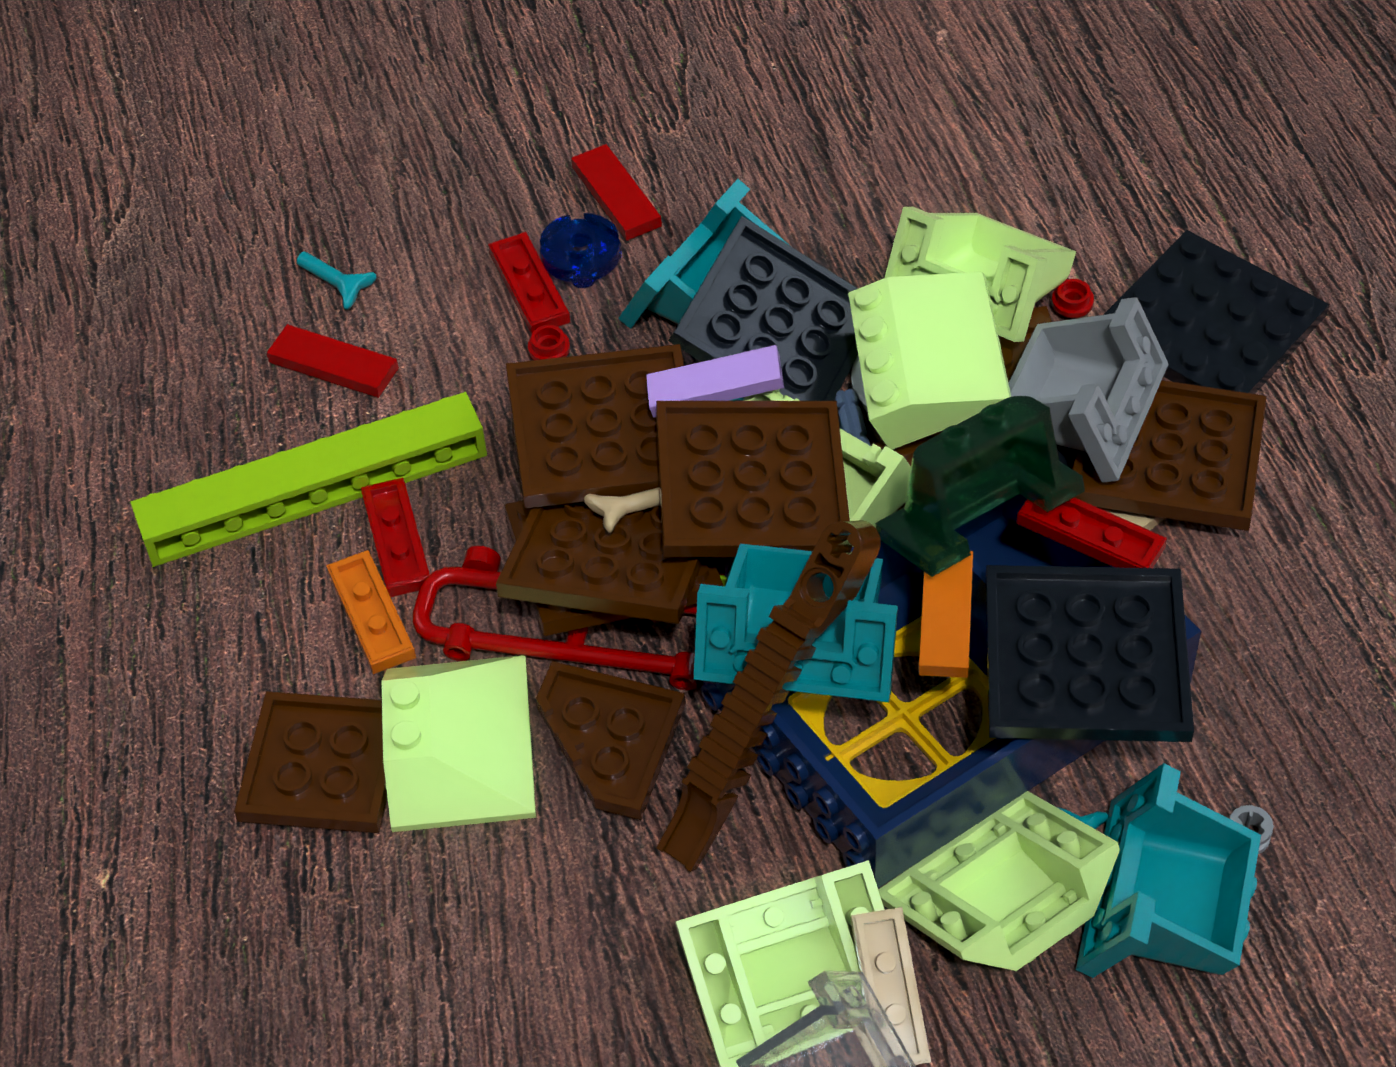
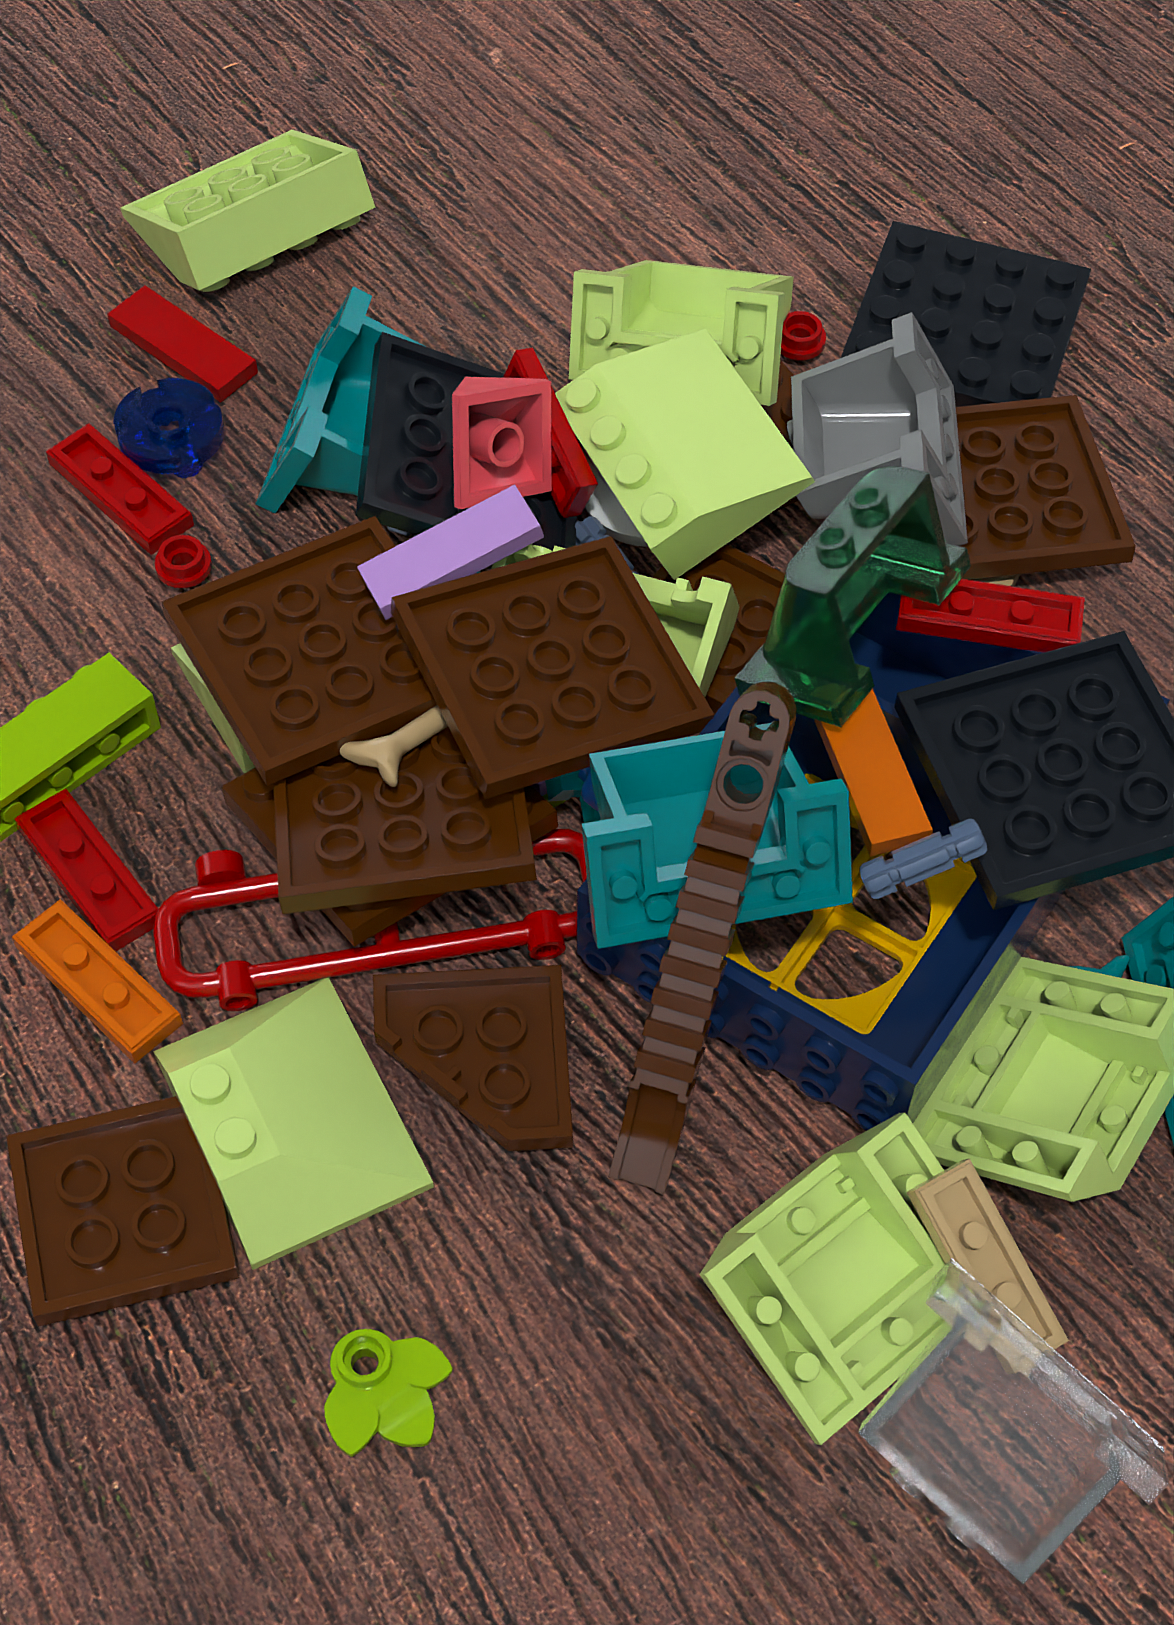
camera: 25 degrees left, 5 degrees up
(441, 941) = (390, 1398): none -> lime plate
(706, 107) = (252, 208): none -> yellowish green slope
(794, 312) = (500, 437): none -> coral slope
(837, 319) = (570, 471): none -> red tile
(949, 684) = (923, 858): none -> sand blue axle

